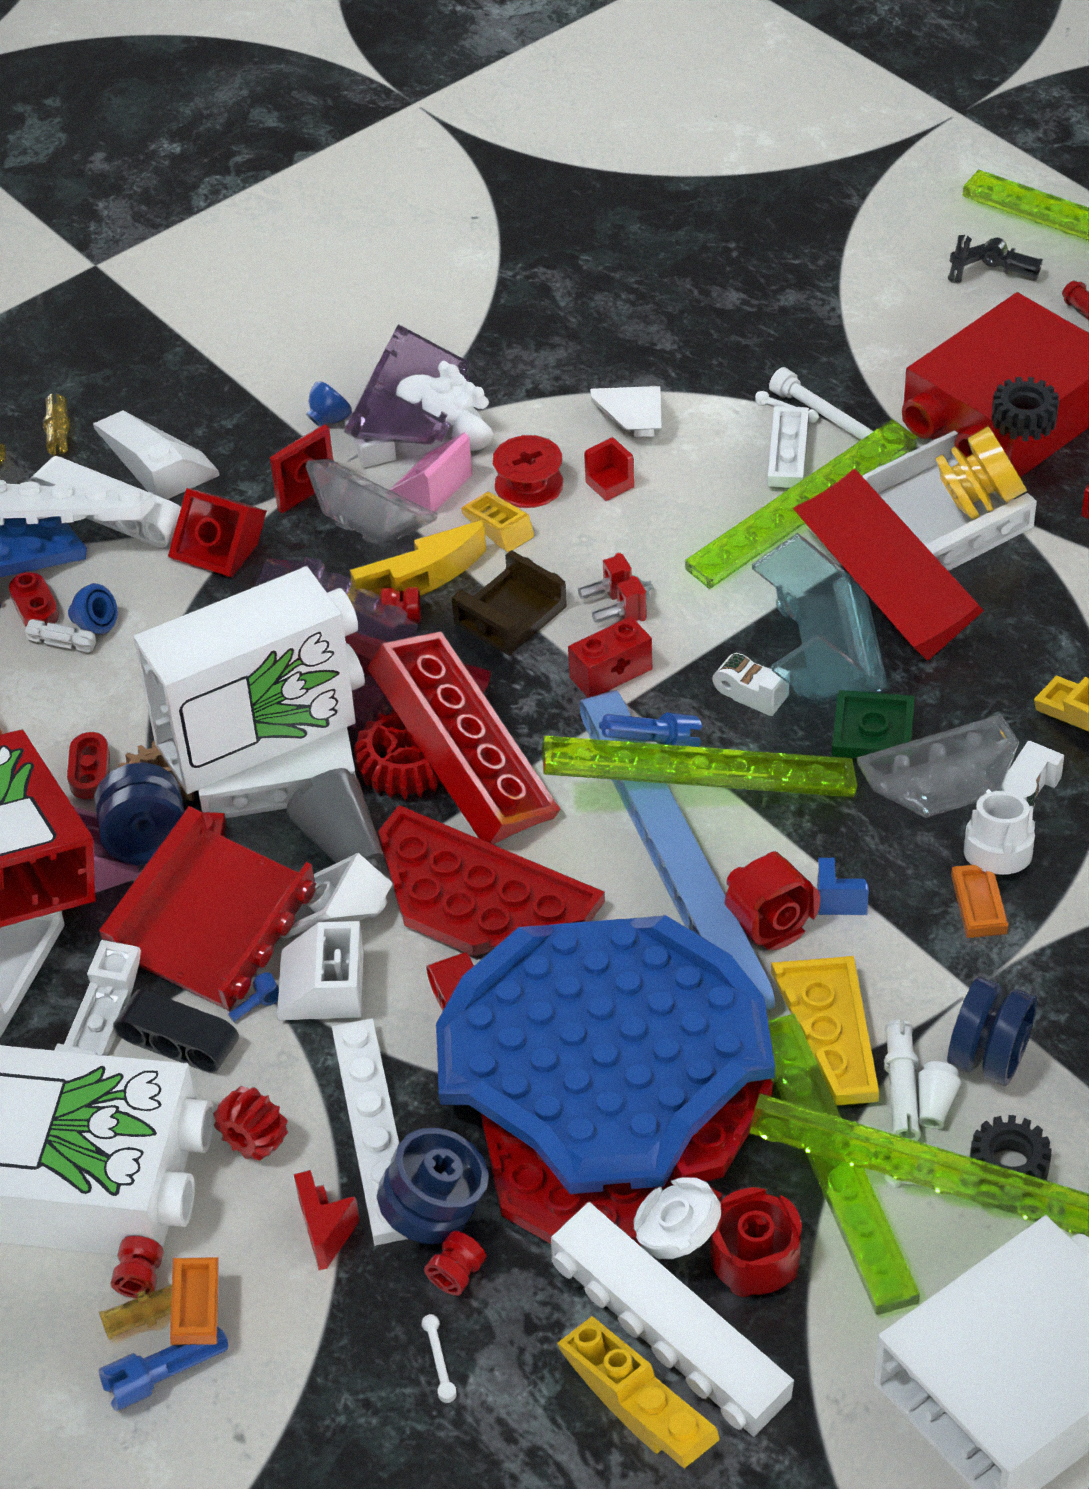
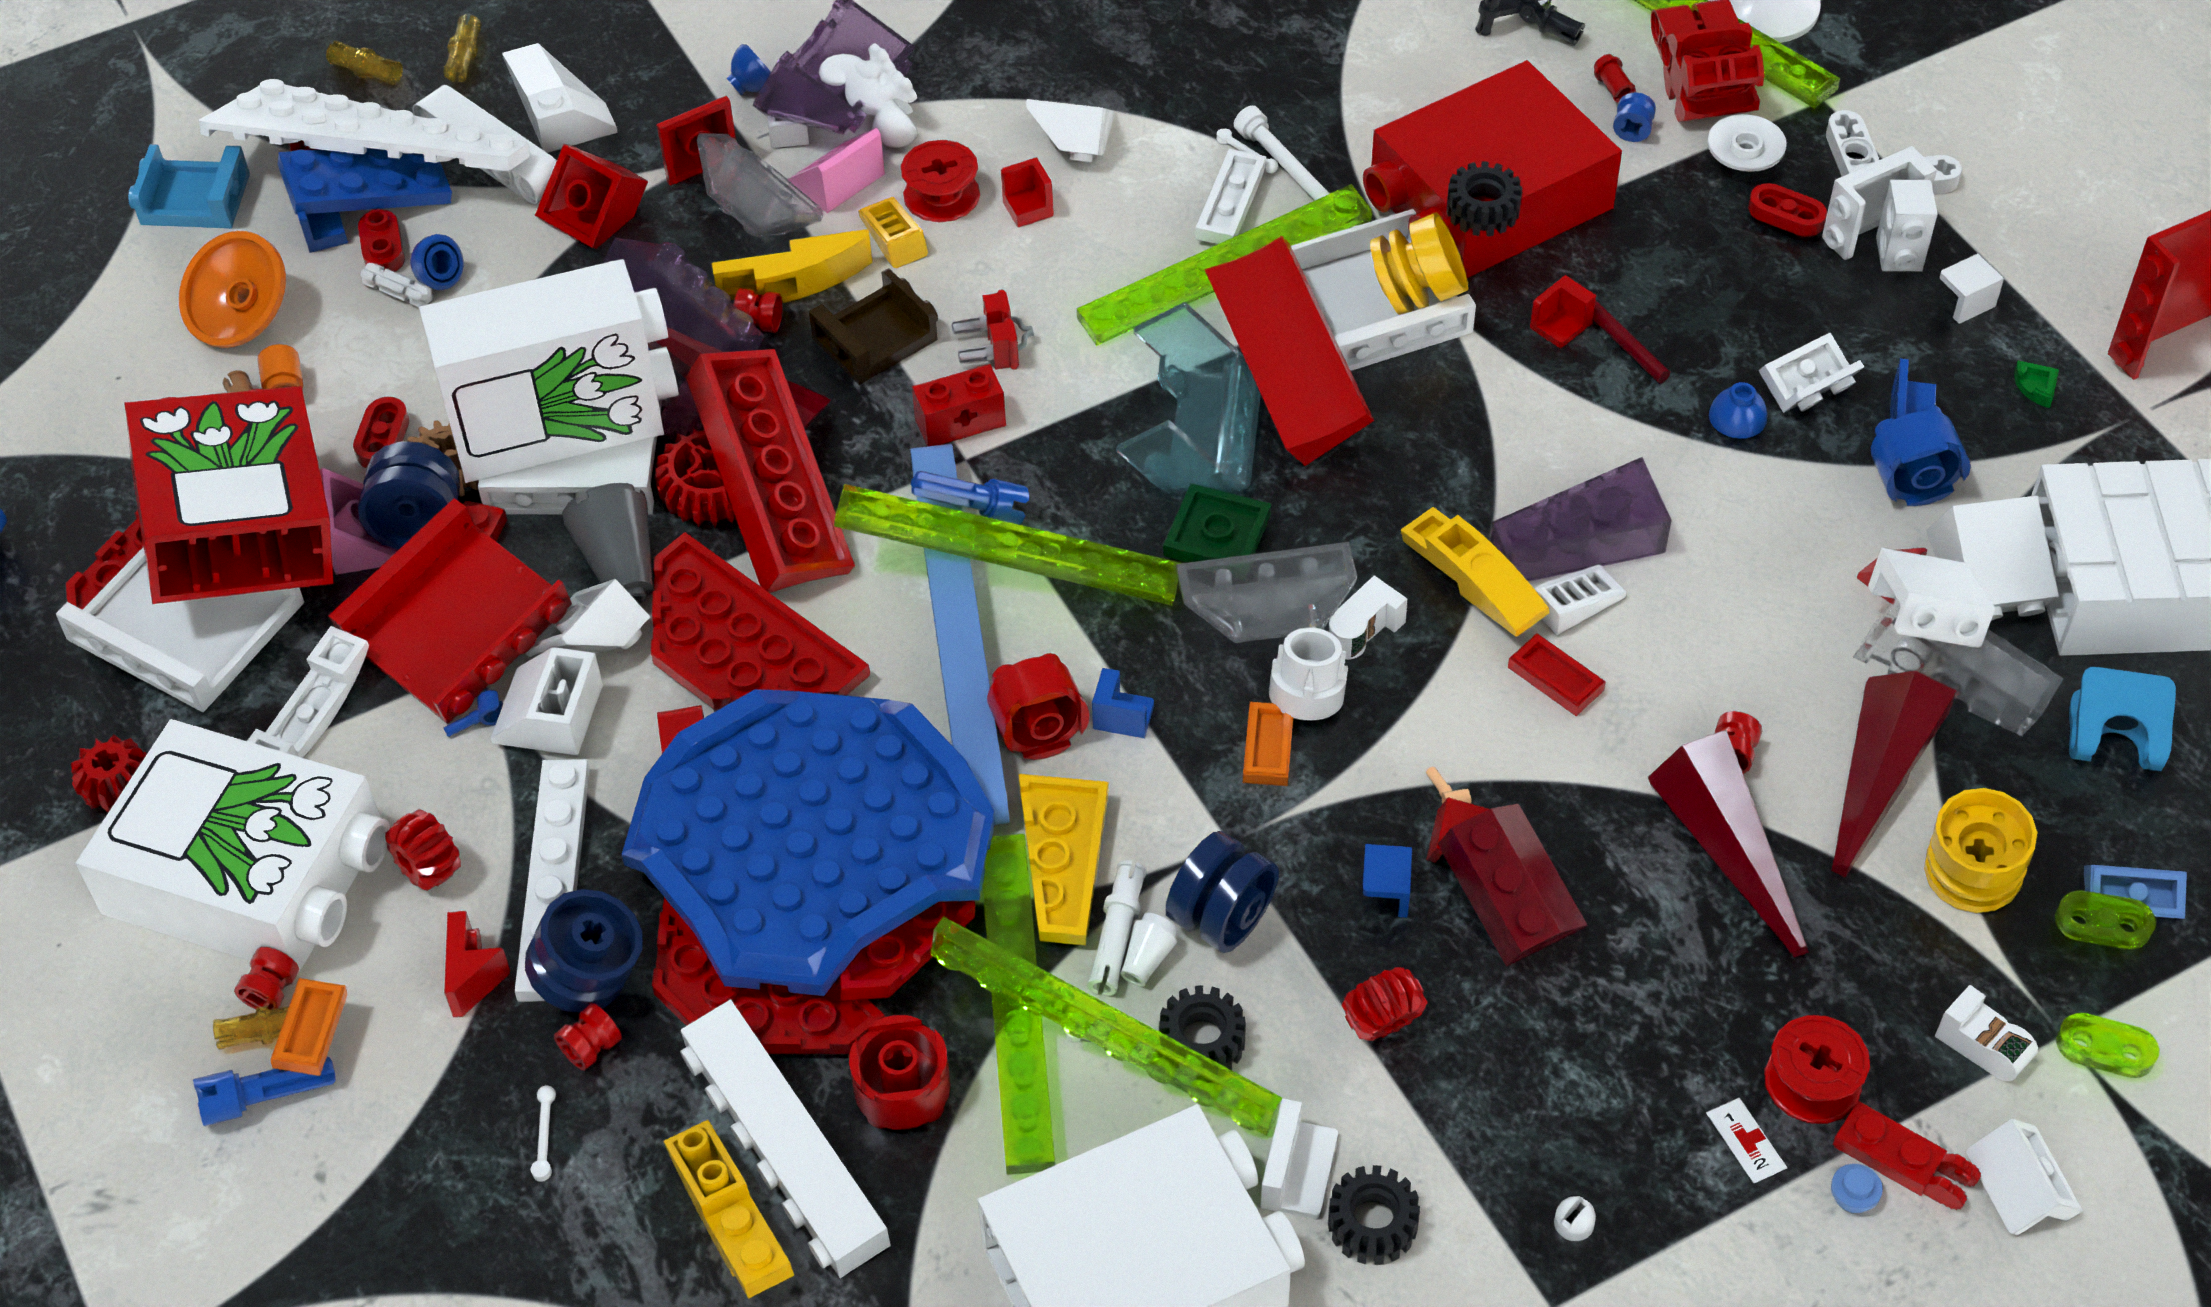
camera: 10 degrees right, 5 degrees up
(176, 1031) = (382, 736): black beam -> none
(677, 1218) = (821, 1033): white tile -> none
(751, 684) = (1098, 461): white leg -> none

